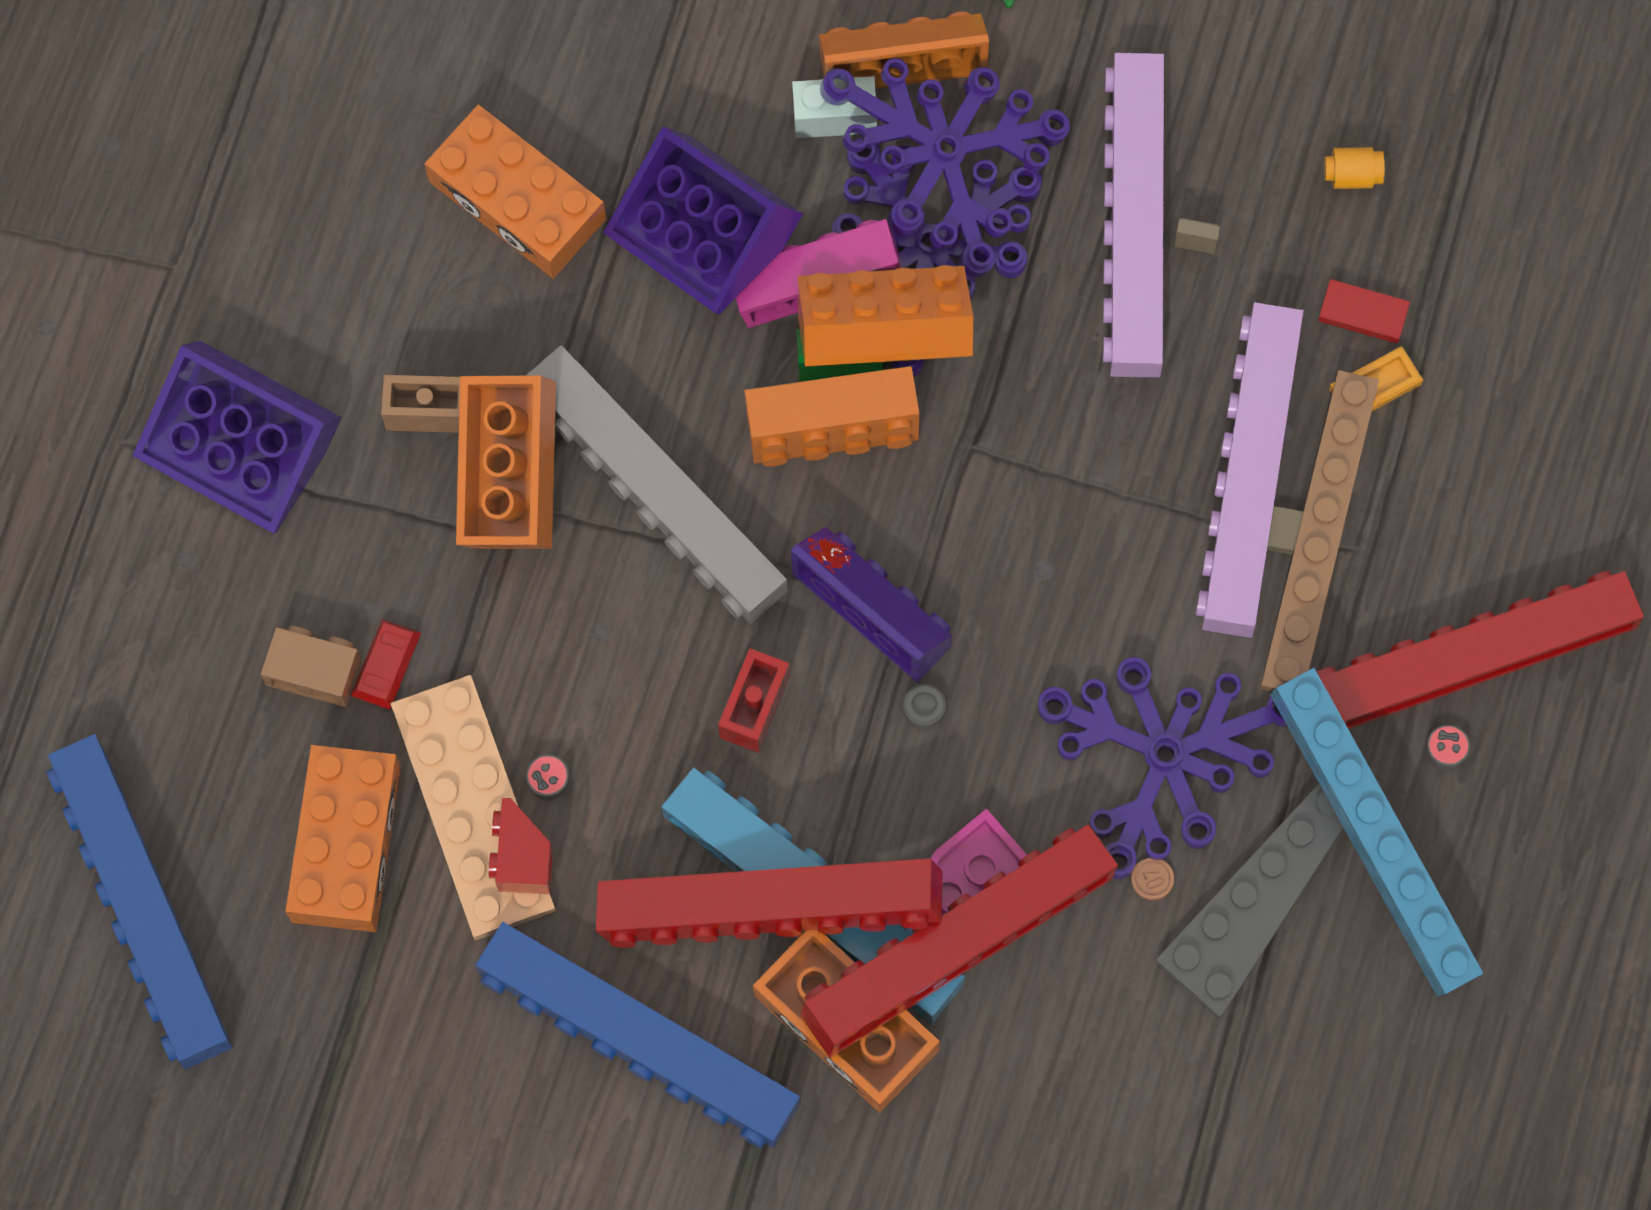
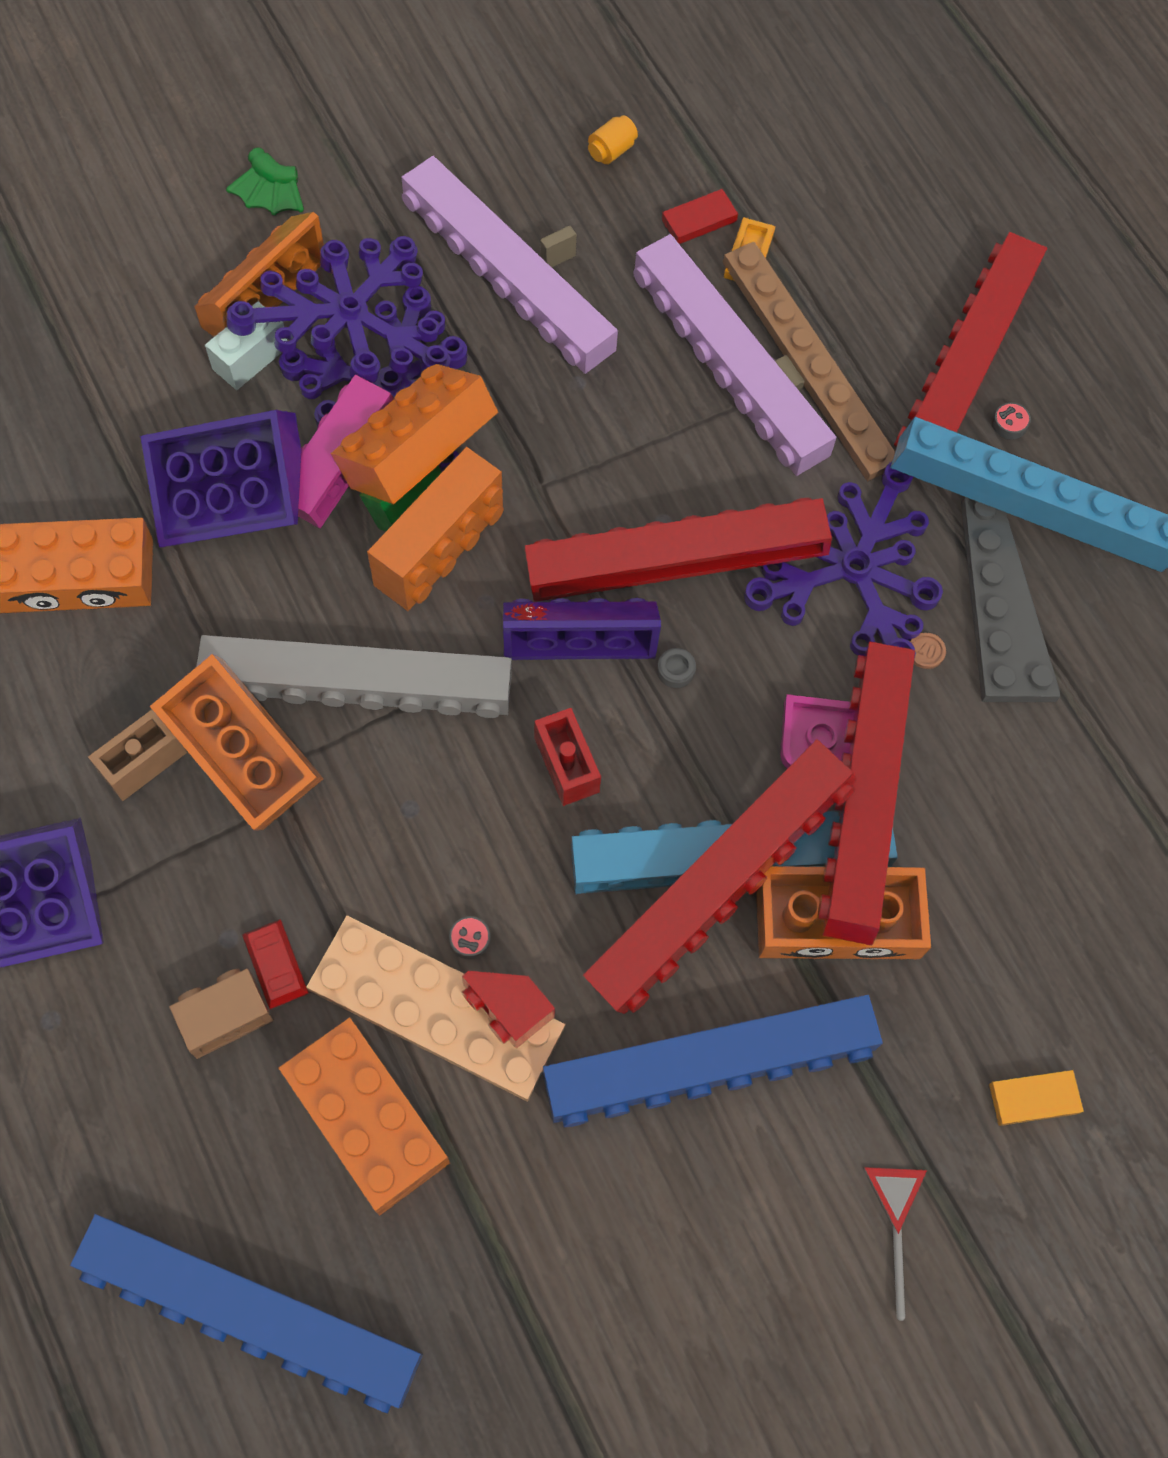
camera: 50 degrees left, 5 degrees down
(1017, 606) = (678, 549): none -> red brick

